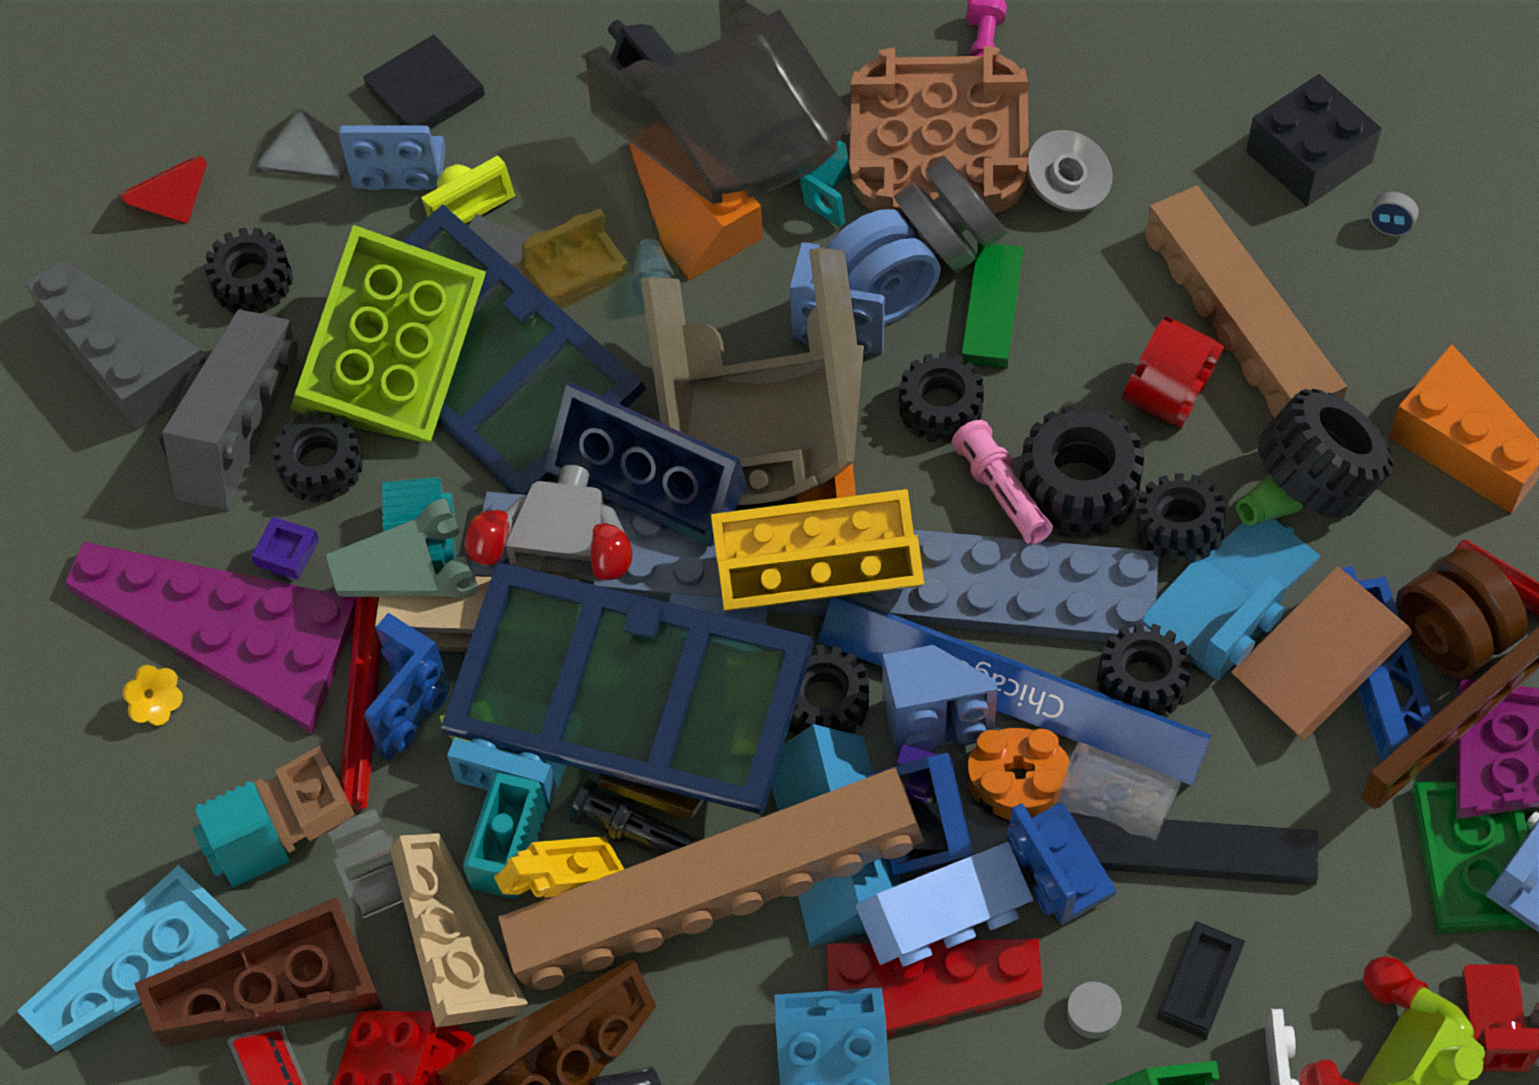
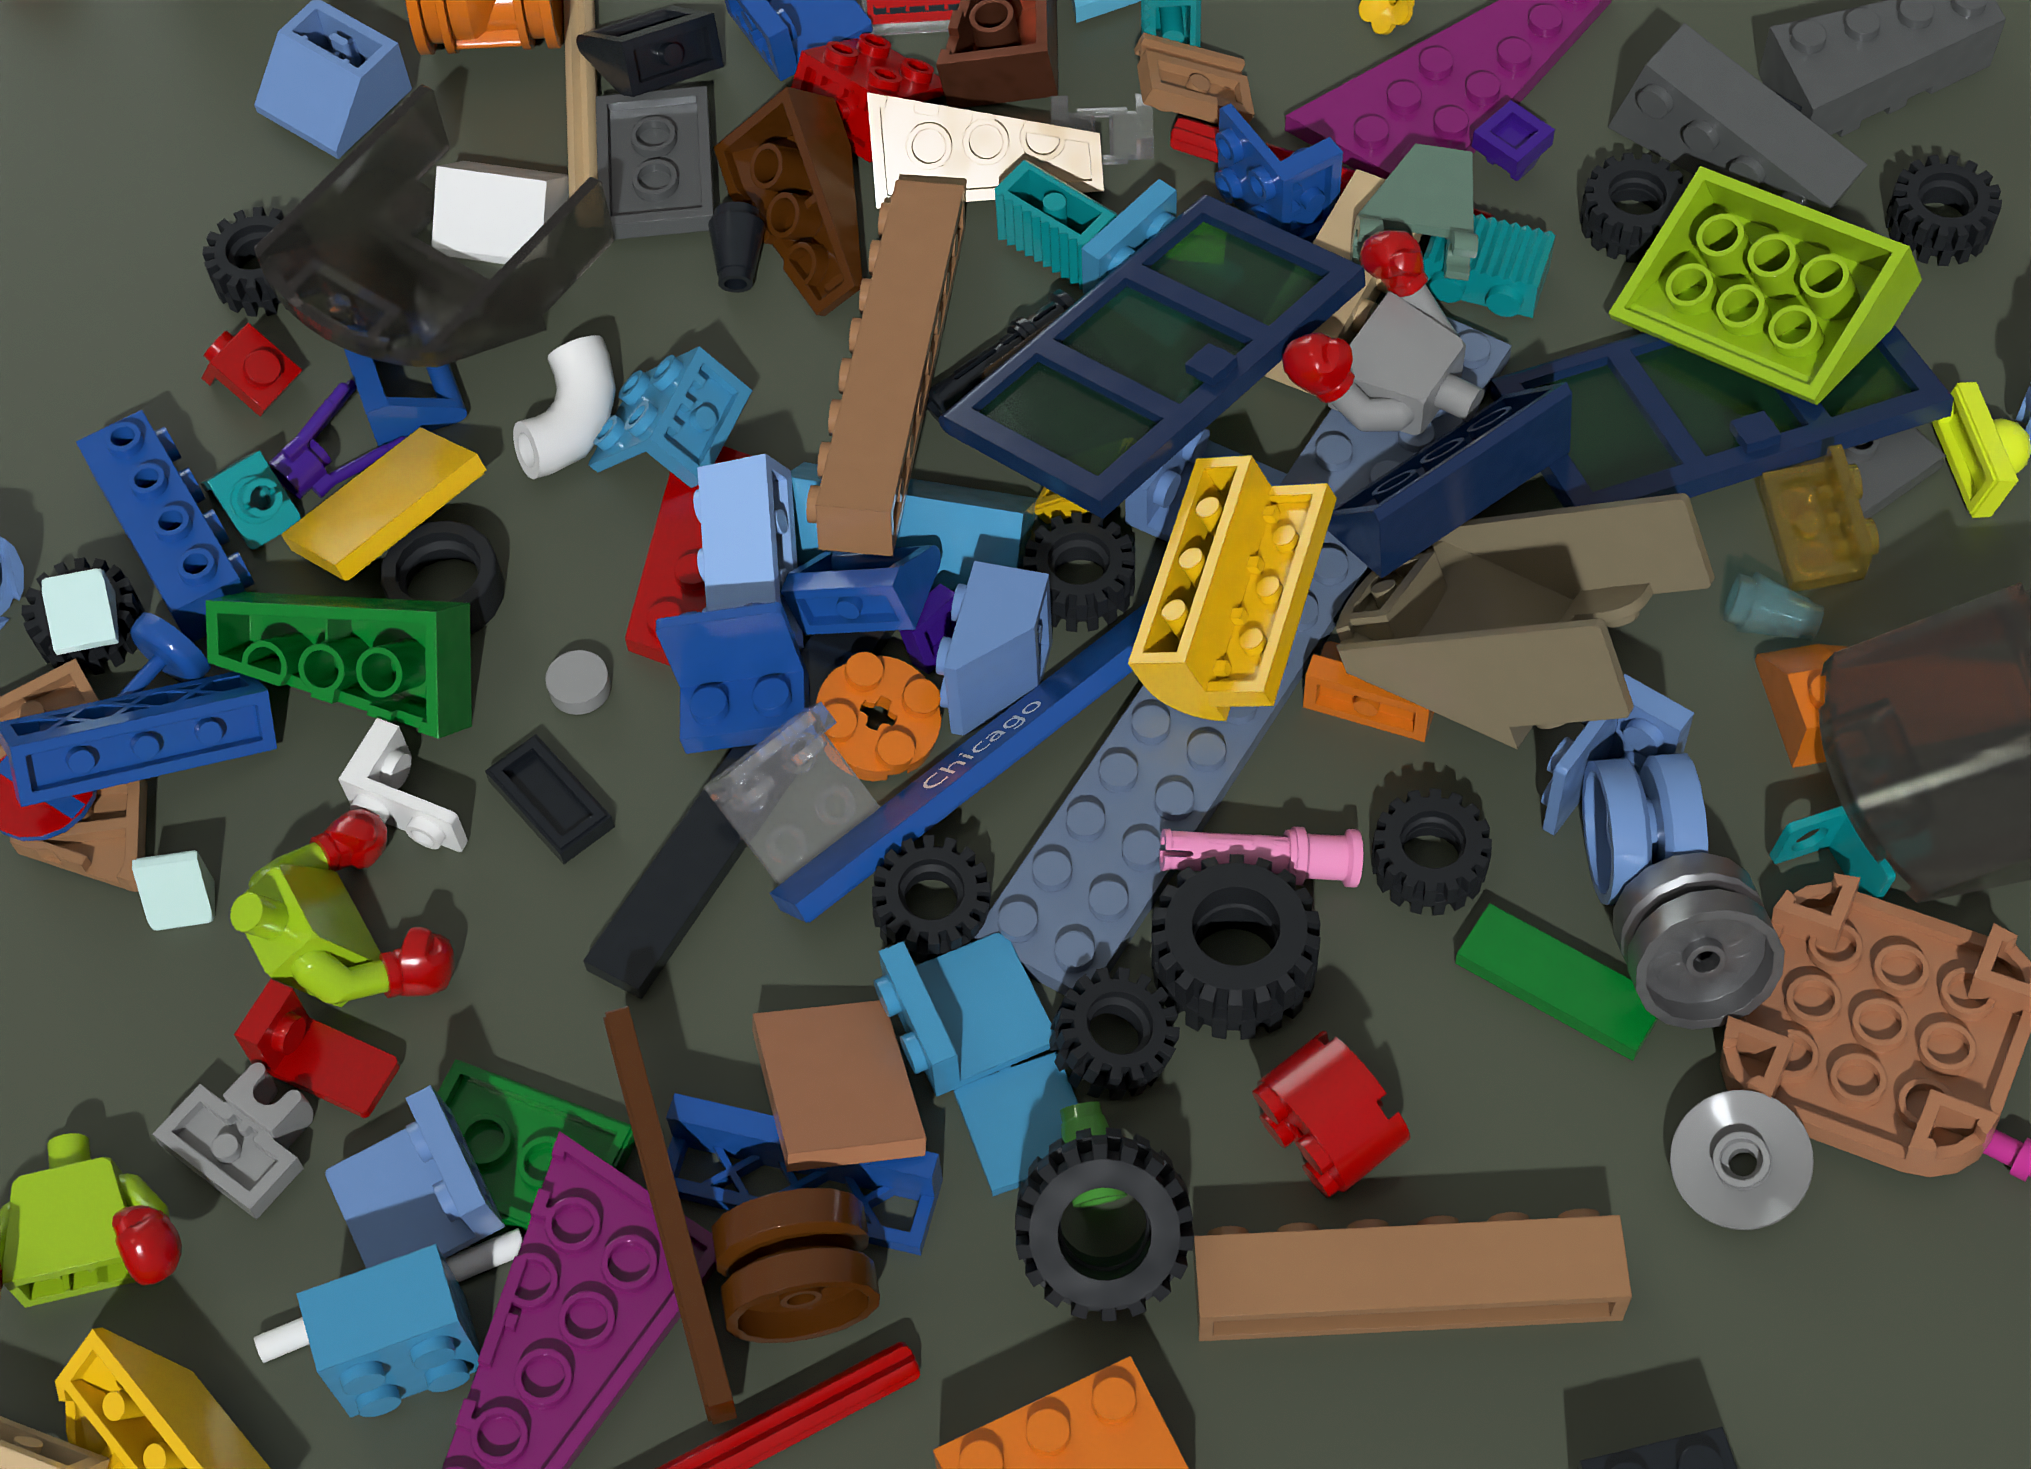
camera: 115 degrees right, 0 degrees up
(558, 866) = (985, 254): yellow hinge -> none

